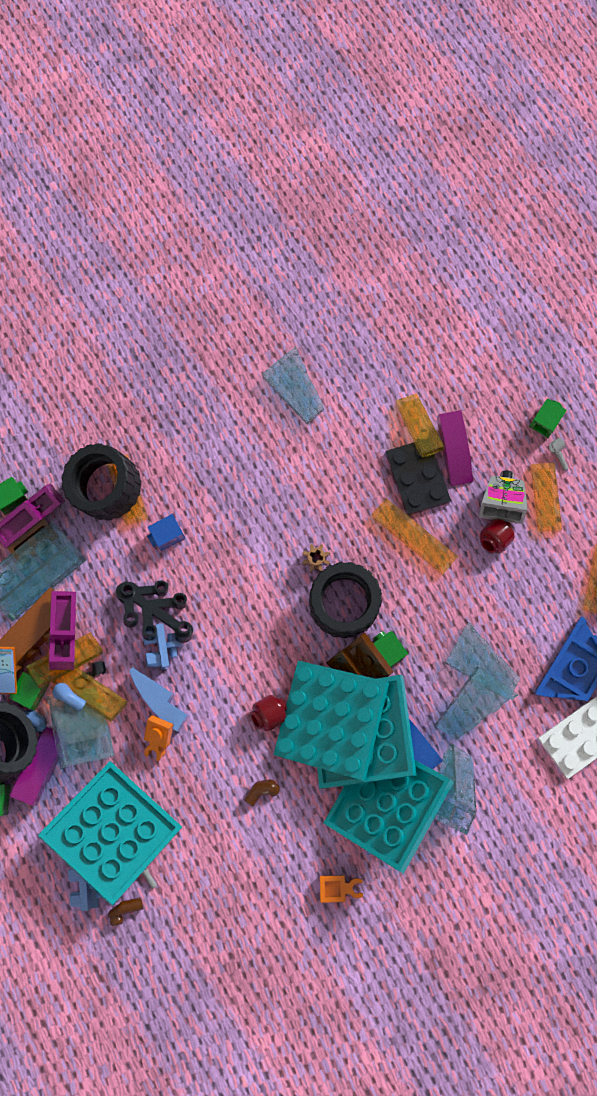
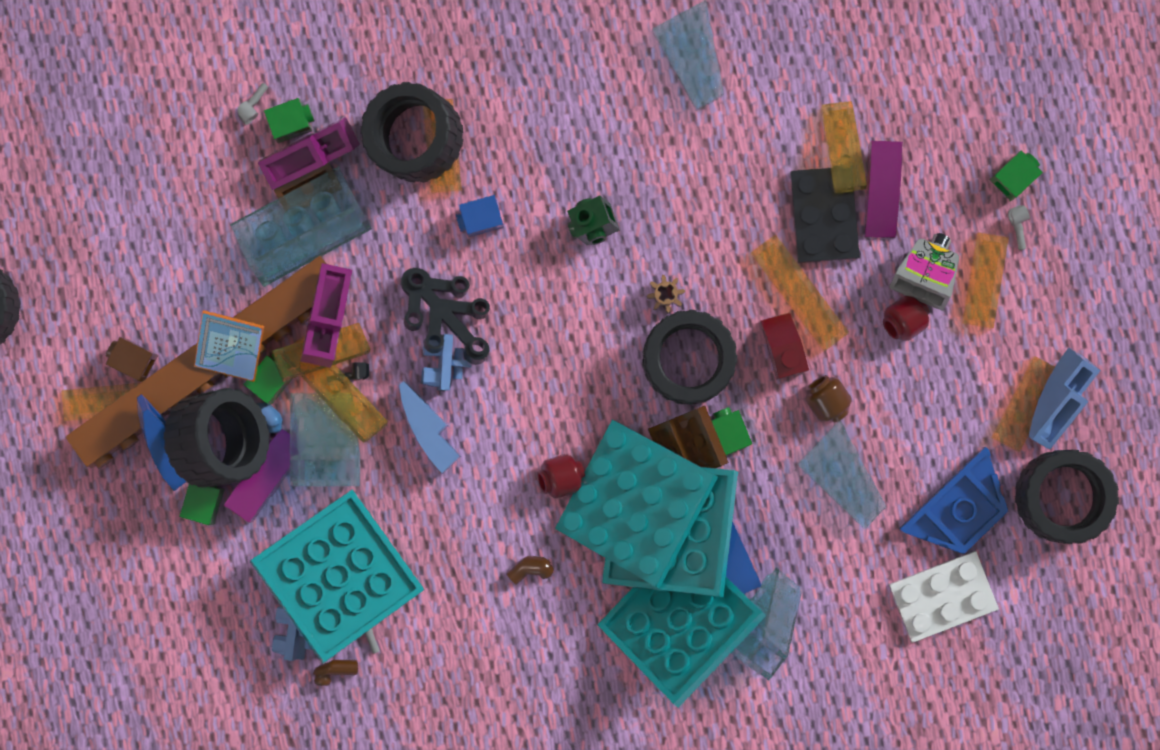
camera: 20 degrees right, 10 degrees up
(64, 693) = (313, 395): medium blue arm -> none
(159, 734) = (419, 473): orange plate -> none
(249, 517) = (592, 220): none -> dark green brick
(334, 888) = (592, 705): orange plate -> none
(413, 577) = (784, 346): none -> dark red slope
(455, 608) = (828, 399): none -> reddish brown head
(474, 702) = (822, 521): clear light blue wing -> none

